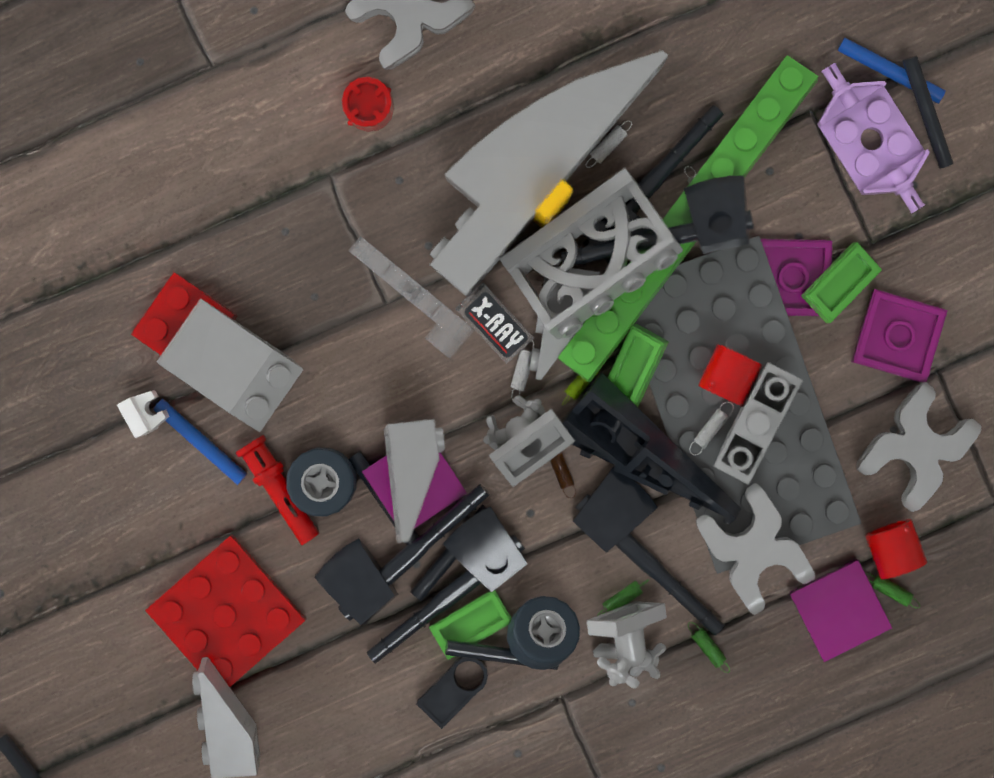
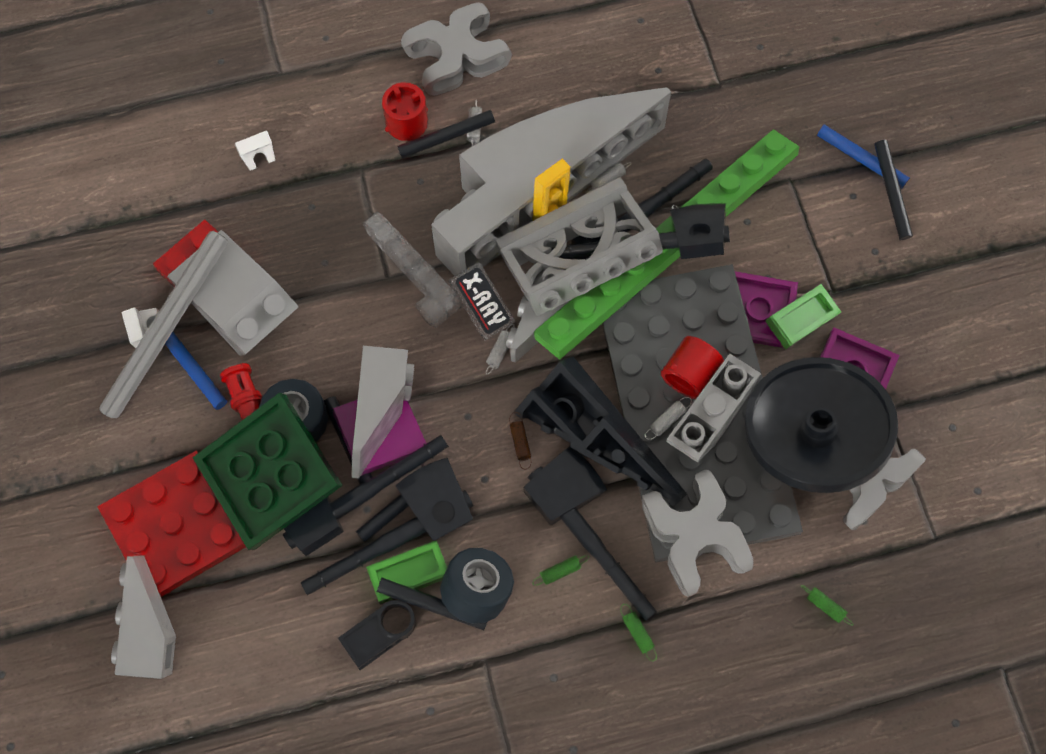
camera: 15 degrees right, 20 degrees down
(168, 416) = (163, 324): none -> light grey axle
(205, 173) = (255, 144): none -> white tile
(311, 555) = (267, 471): none -> dark green plate
(419, 122) = (446, 134): none -> black bar
(447, 101) = (474, 136): none -> white piece
(526, 440) = (494, 398): light grey piece -> none
(576, 387) = (546, 369): lime piece -> none
(627, 628) = (560, 605): light grey piece -> none
(637, 362) = (607, 352): bright green tile -> none
(840, 610) = (773, 616): magenta tile -> none
(865, 107) = (838, 179): lavender plate -> none
(870, 417) = (821, 425): none -> black dish
(896, 549) = (834, 559): red piece -> none

